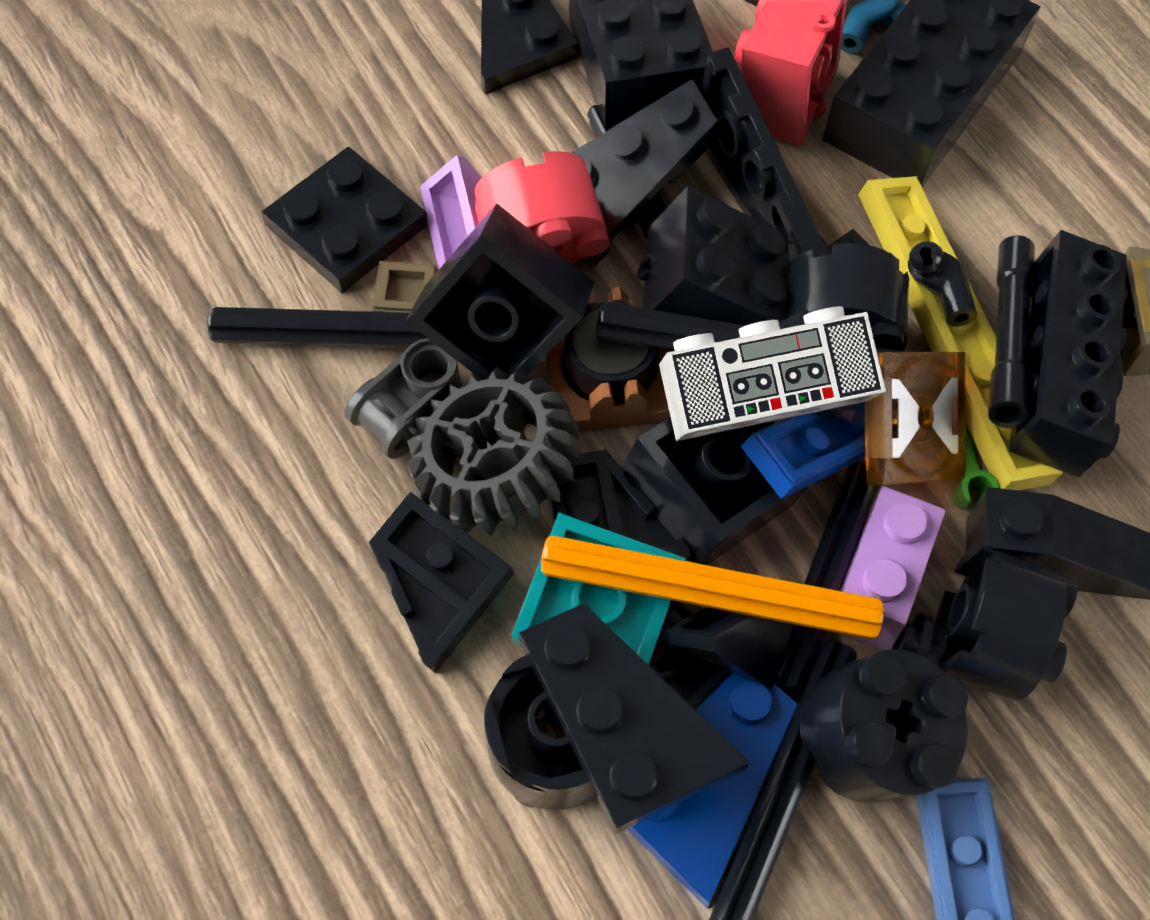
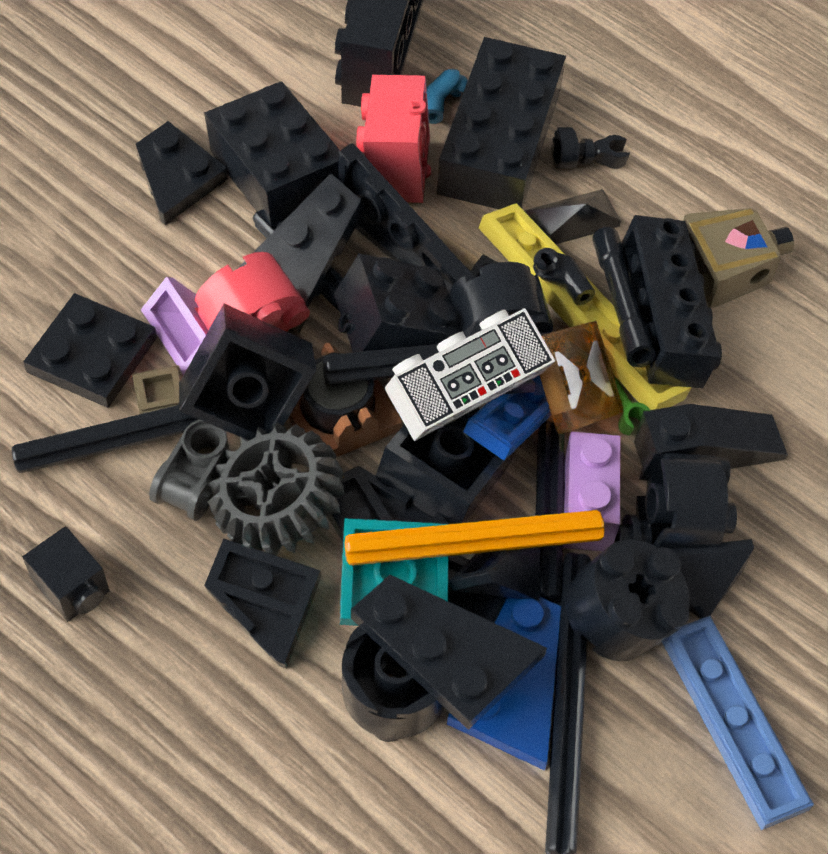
camera: 20 degrees left, 5 degrees down
(216, 479) = (67, 574): none -> black brick
(986, 212) = (575, 216): none -> black slope
(1005, 127) = (567, 150): none -> black piece
(1007, 723) = (712, 572): none -> black slope

